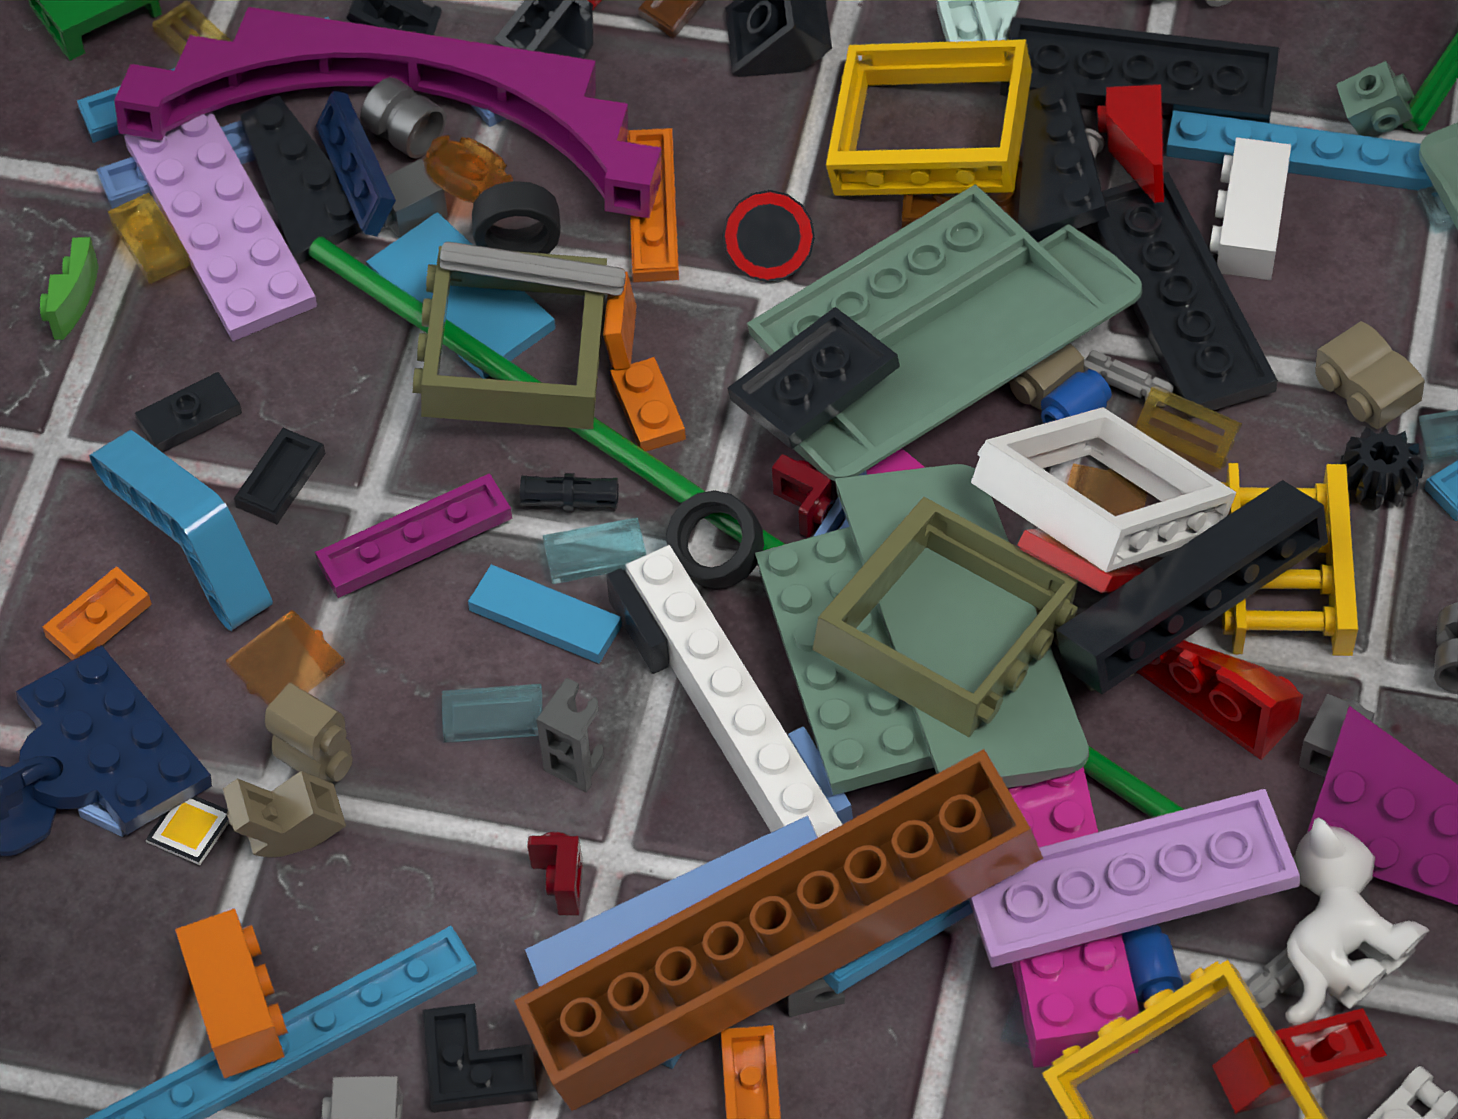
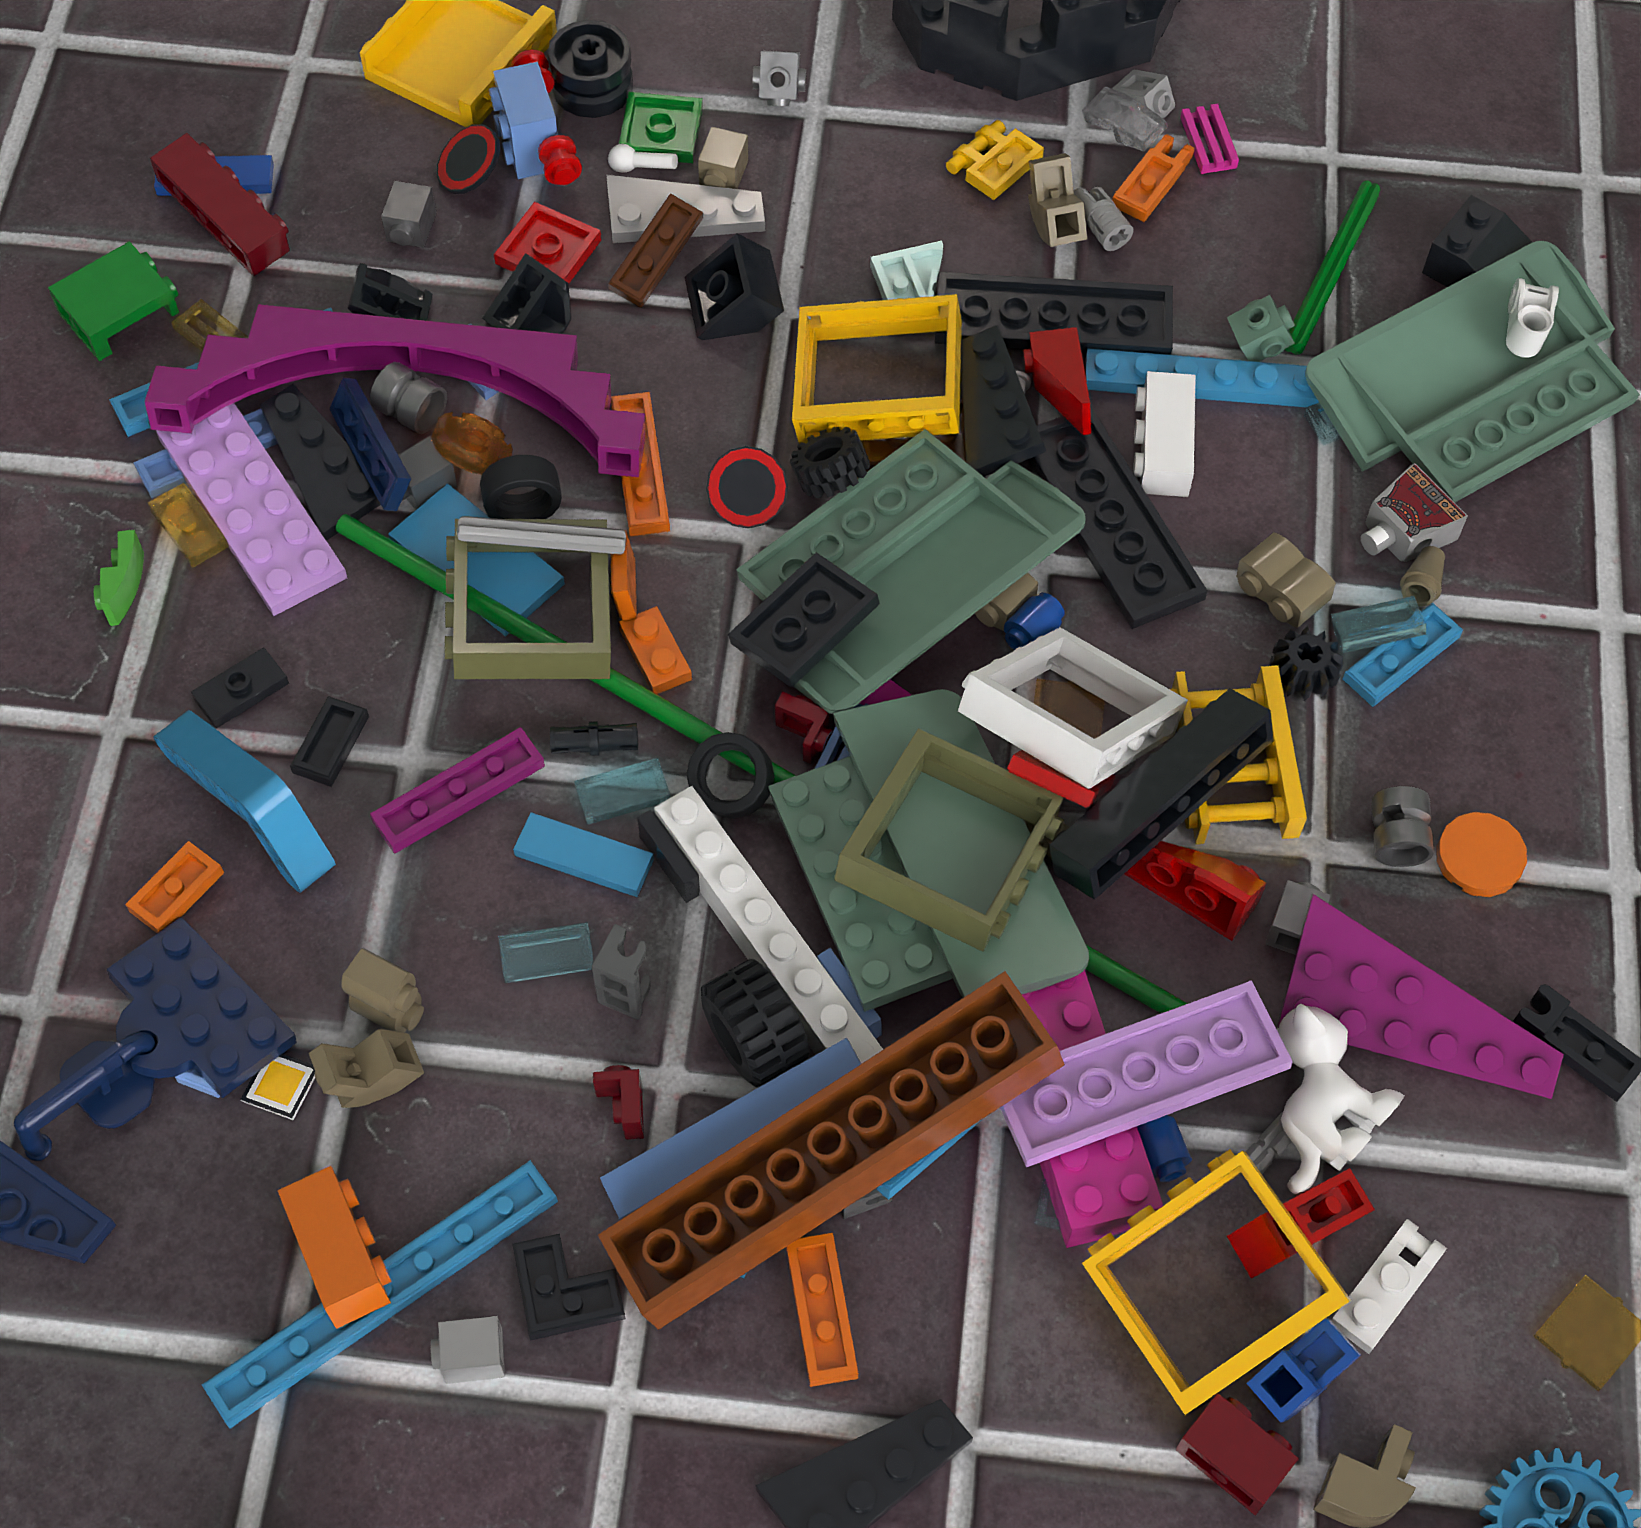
camera: 10 degrees left, 5 degrees up
(283, 655) = (352, 917): clear orange piece -> none
(709, 794) = (754, 1022): none -> black tyre
(864, 214) = (830, 462): none -> black tyre
(1125, 376) = (1077, 597): light grey axle -> none
(1224, 442) = (1141, 624): clear yellow tile -> none

